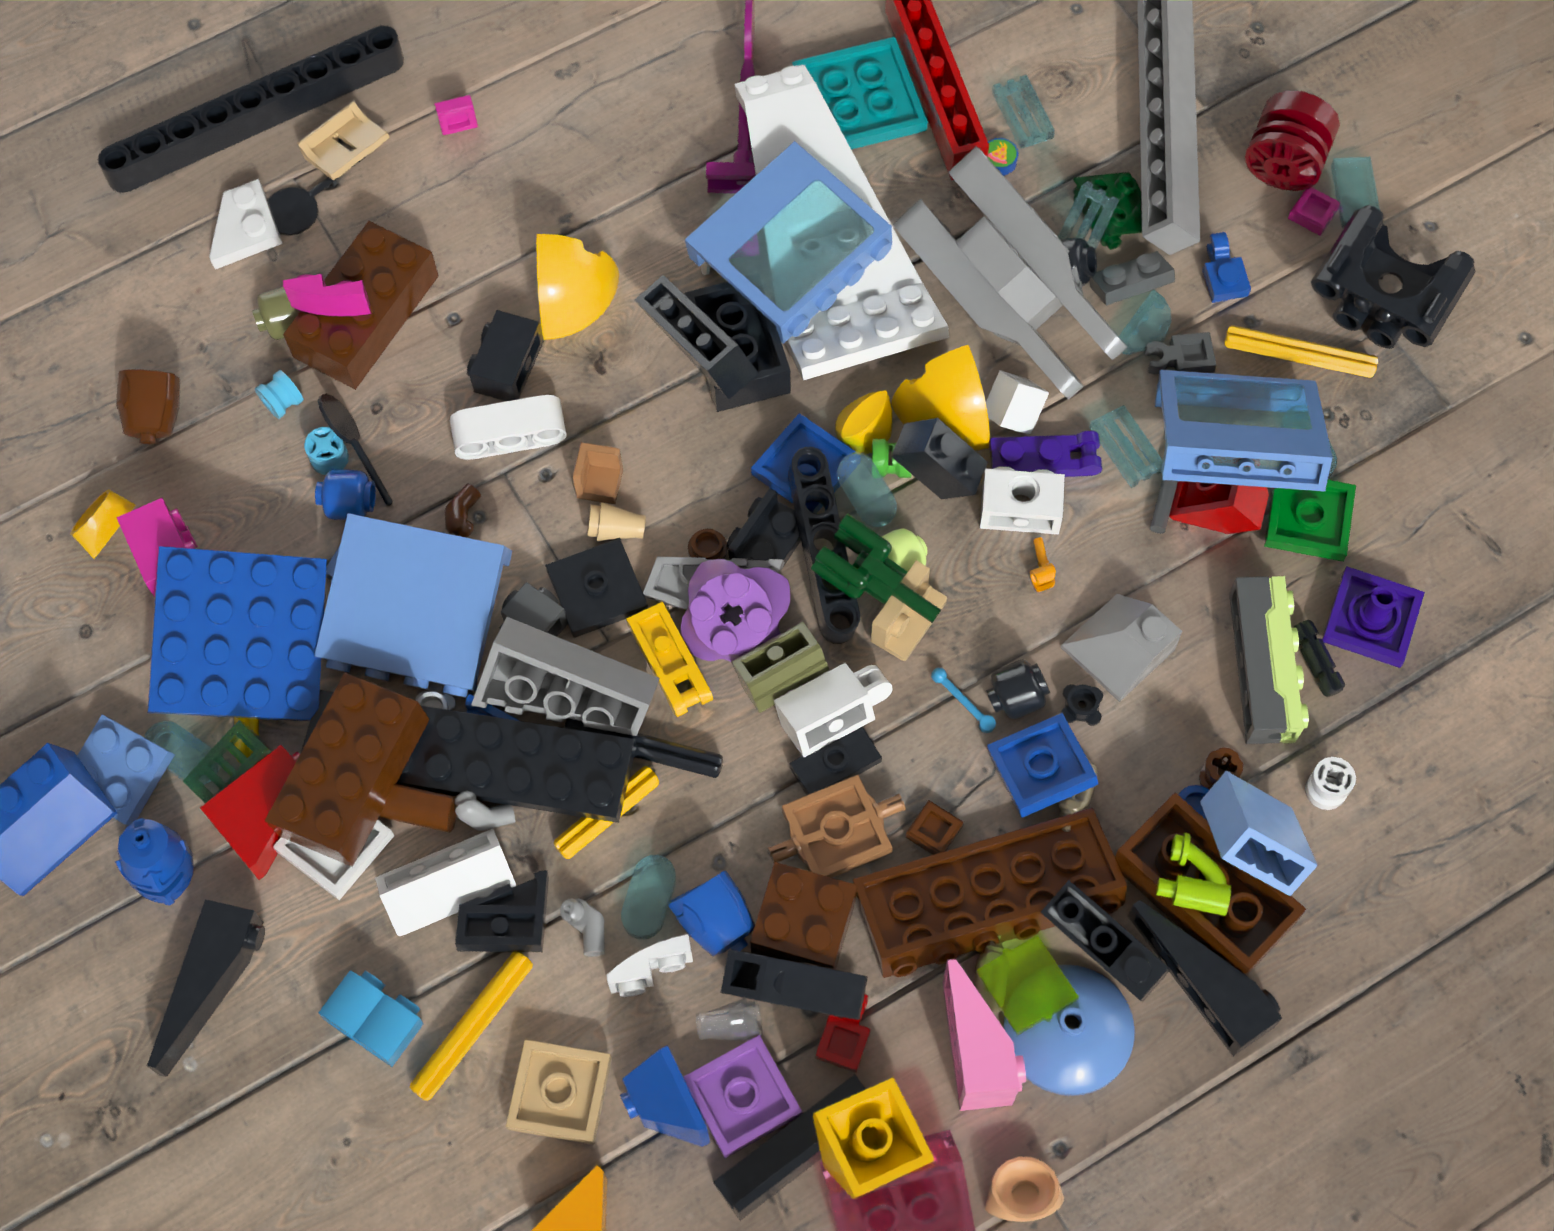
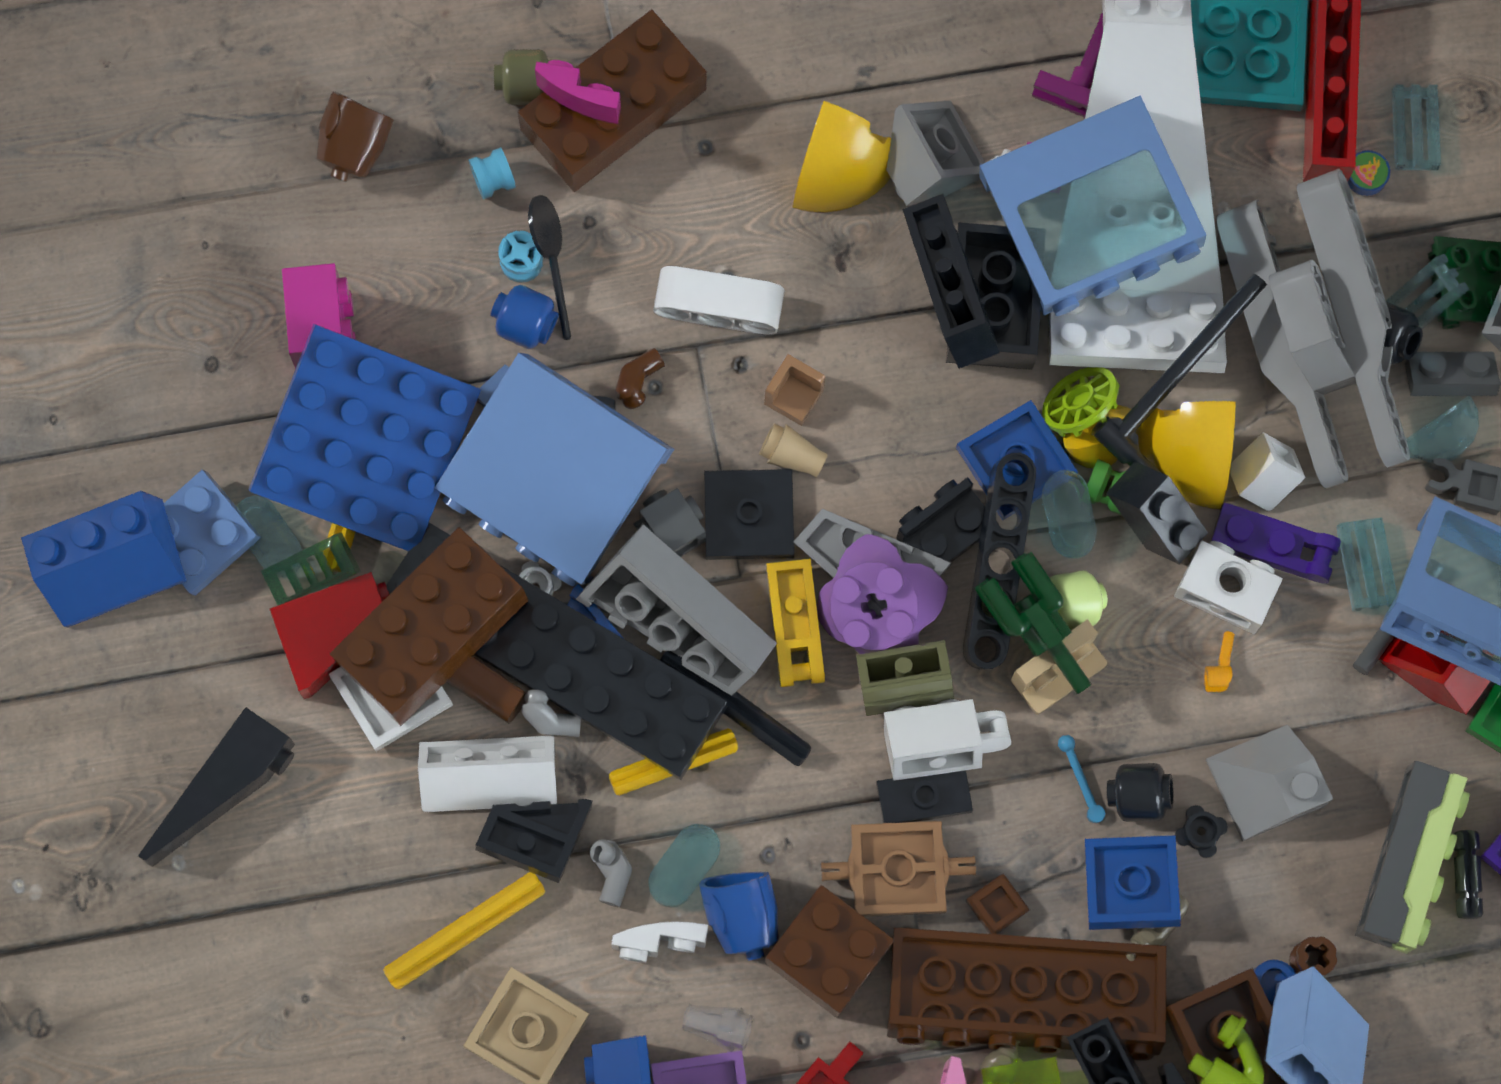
camera: 15 degrees right, 10 degrees up
(100, 521) = (263, 250): yellow piece -> none
(155, 861) = (208, 645): blue helmet -> none
(371, 1017) = (369, 885): dark azure brick -> none
(505, 356) = (744, 217): black brick -> none
(640, 254) = (931, 152): none -> light grey slope
(707, 544) = (879, 512): reddish brown plate -> none
(794, 984) = (793, 1014): black slope -> none
(842, 399) = (1077, 407): none -> lime wheel
(882, 410) = (1119, 434): none -> black bar
(1324, 790) = (1410, 1013): white wheel -> none

